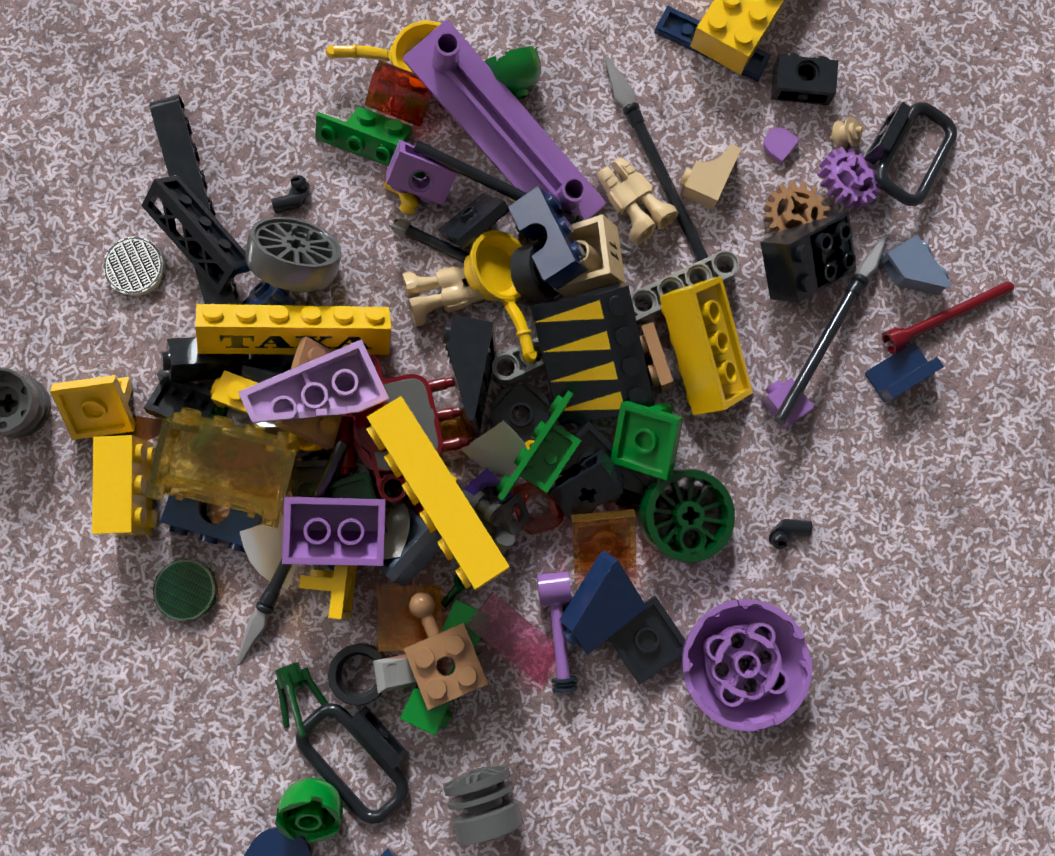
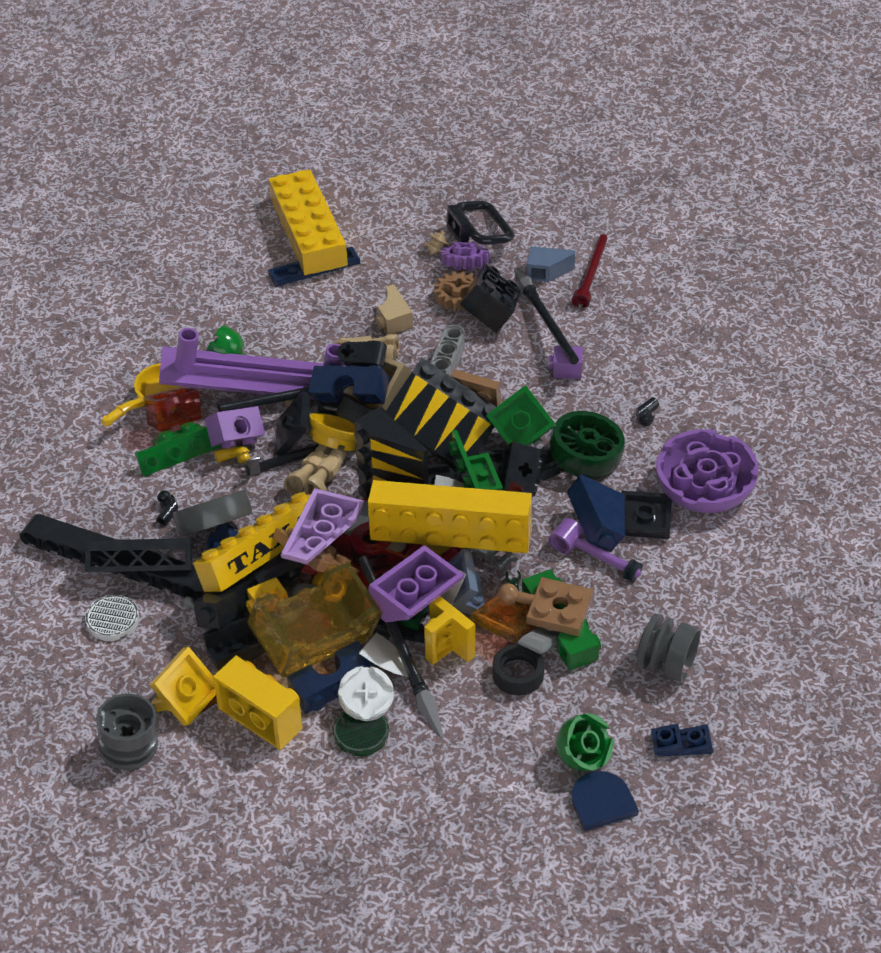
camera: 45 degrees left, 35 degrees down
(212, 568) = (365, 693): none -> white tile
(288, 681) = (485, 708): dark green plant -> none
(376, 742) = (571, 686): black bar -> none
(514, 638) = (578, 571): clear pink piece -> none
(584, 224) = (363, 353): none -> black piece
(603, 532) = (552, 488): clear orange plate -> none
(625, 97) = (319, 324): black piece -> none
(706, 346) = (480, 361): yellow slope -> none
(779, 143) = (408, 275): medium lavender tile -> none
(790, 87) = (384, 240): black brick -> none
(901, 372) = (604, 307): dark blue panel -> none

